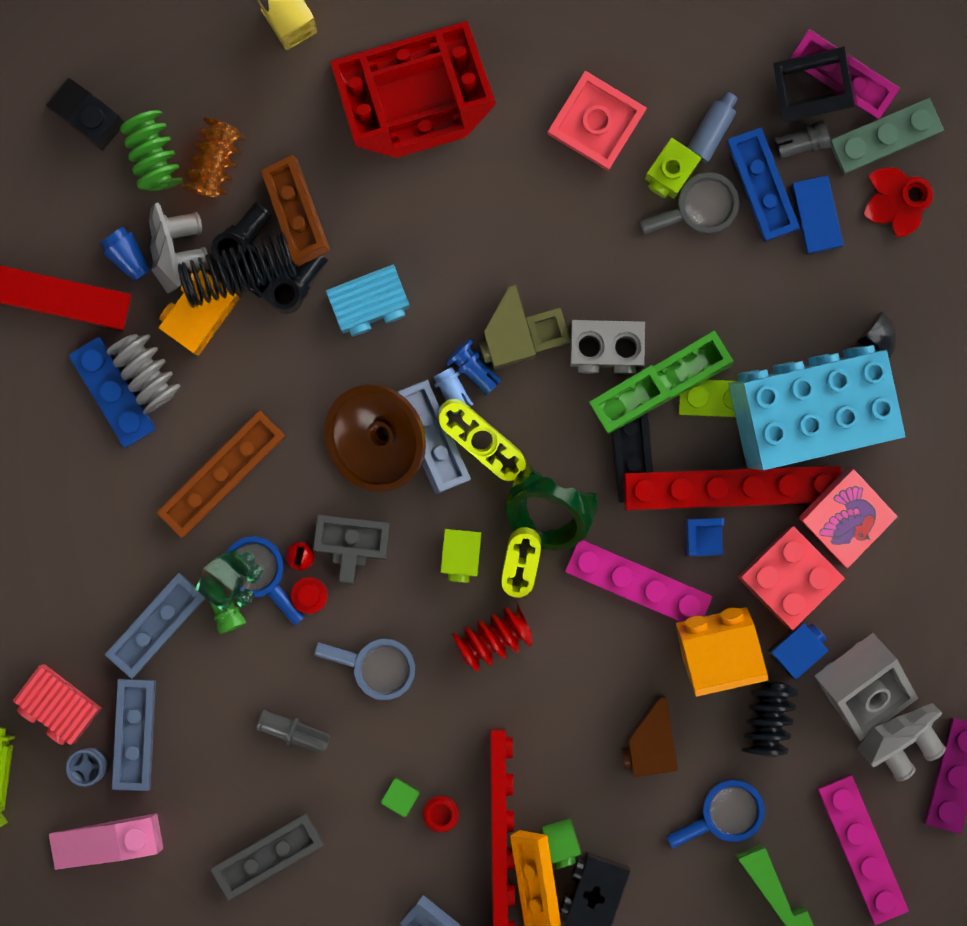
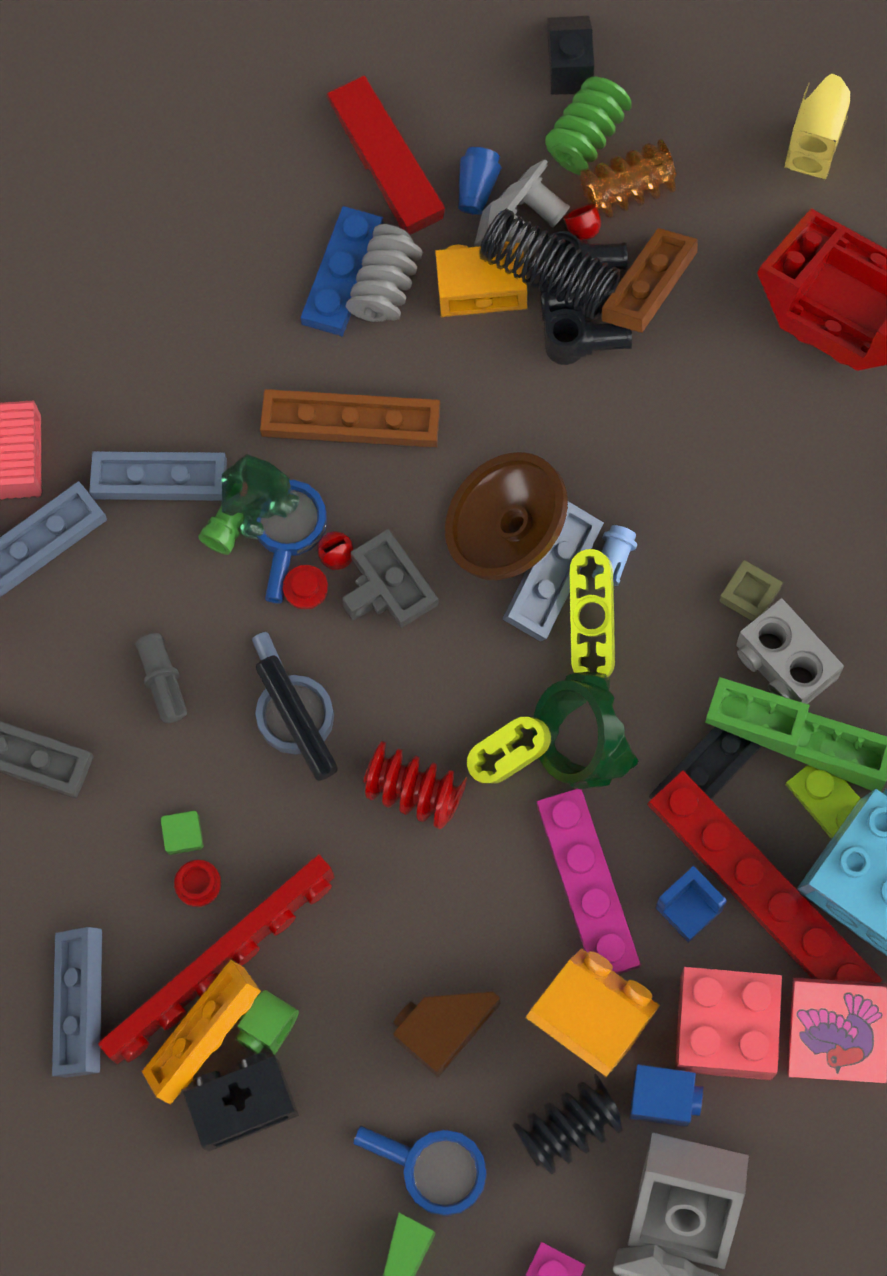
camera: 55 degrees right, 15 degrees down
(214, 212) = (583, 222): none -> red hinge
(368, 300) = (628, 411): medium azure brick -> none
(391, 672) = (296, 718): none -> black axle
(460, 554) = (466, 686): lime brick -> none
(473, 367) = (653, 553): blue pin -> none
(507, 333) = (712, 556): olive slope -> none

